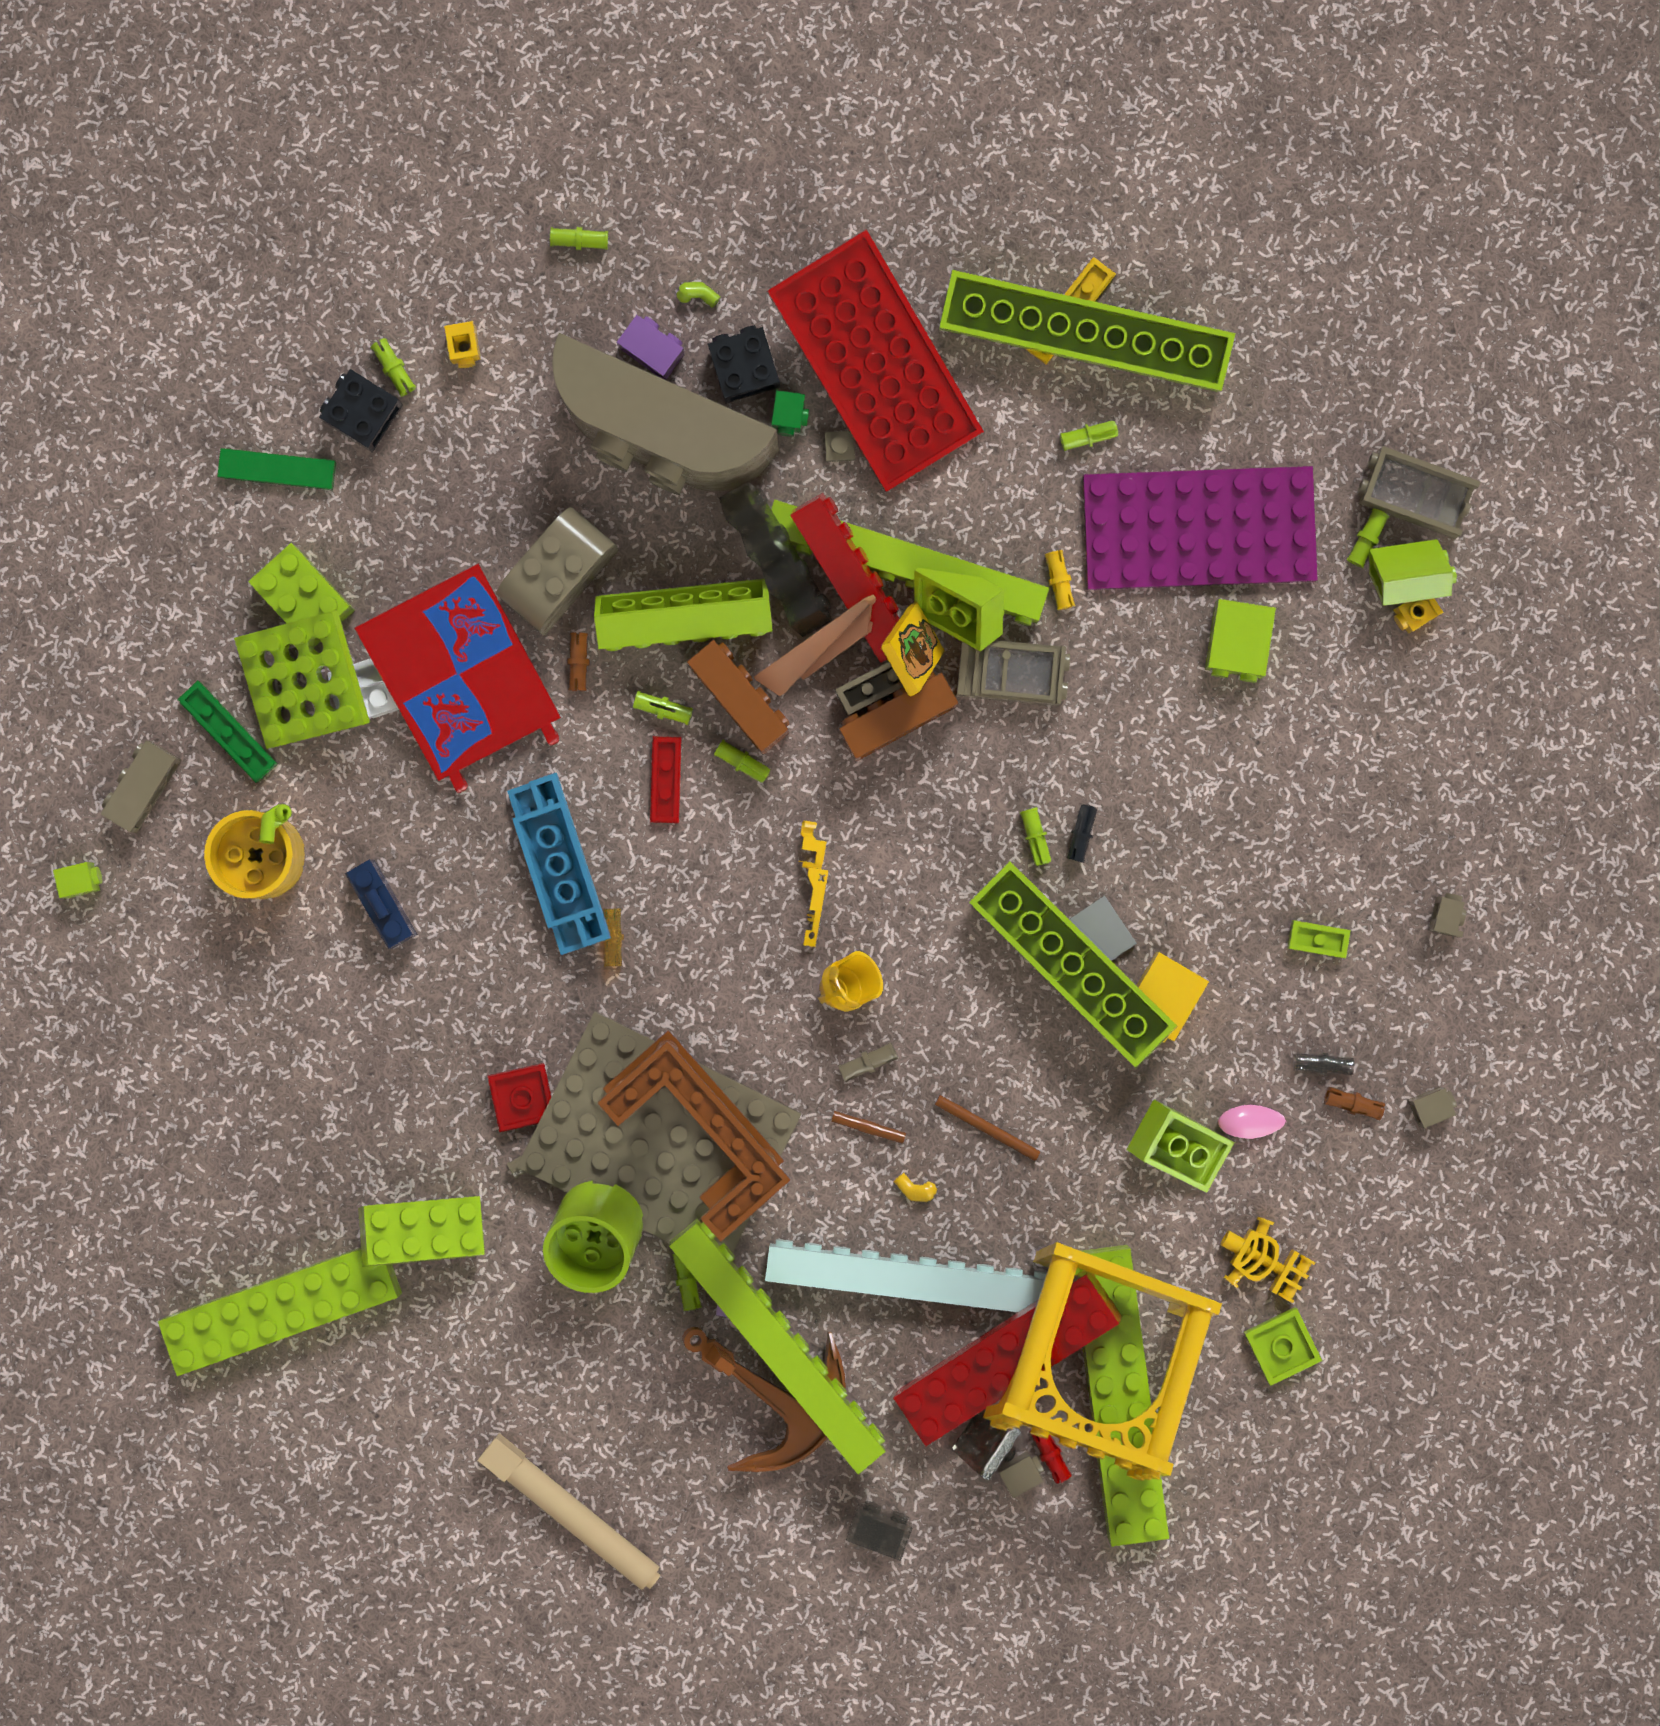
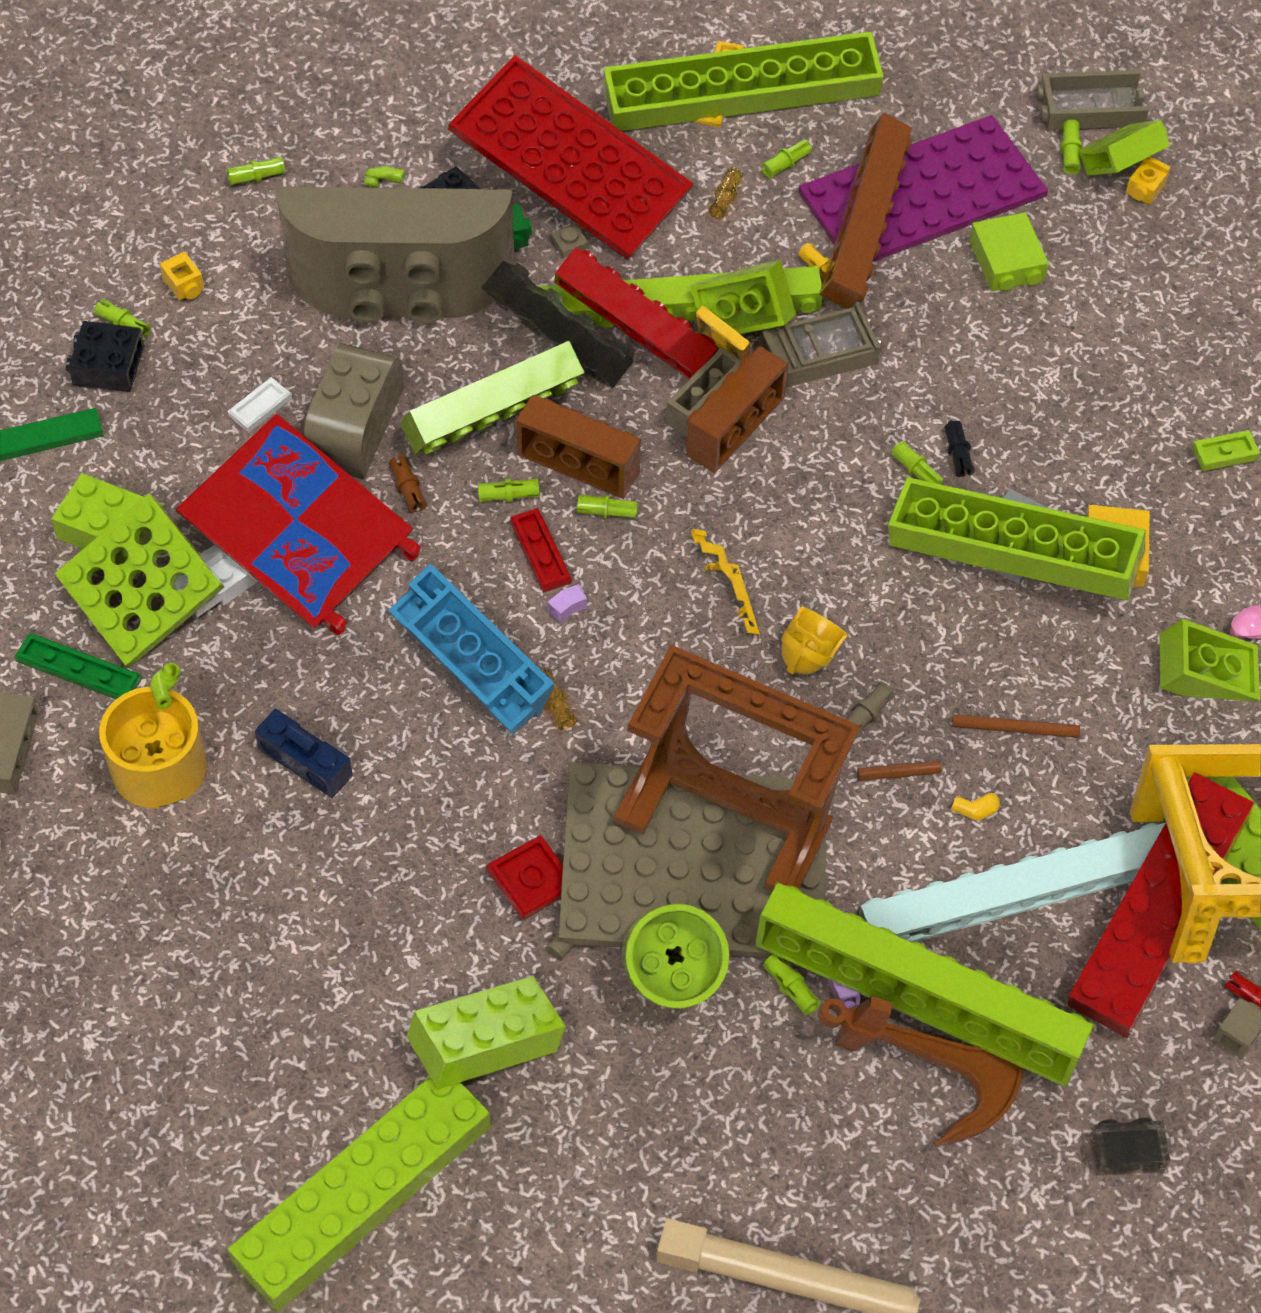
camera: 20 degrees left, 30 degrees down
(482, 516) = (259, 404): none -> white tile
(664, 846) = (567, 602): none -> lavender piece
(819, 648) = (637, 373): nougat wedge -> none
(985, 1446) = (1193, 1005): clear smoke plate -> none
(1010, 454) = (725, 193): none -> clear yellow pin
(1124, 546) = (866, 212): none -> dark orange brick

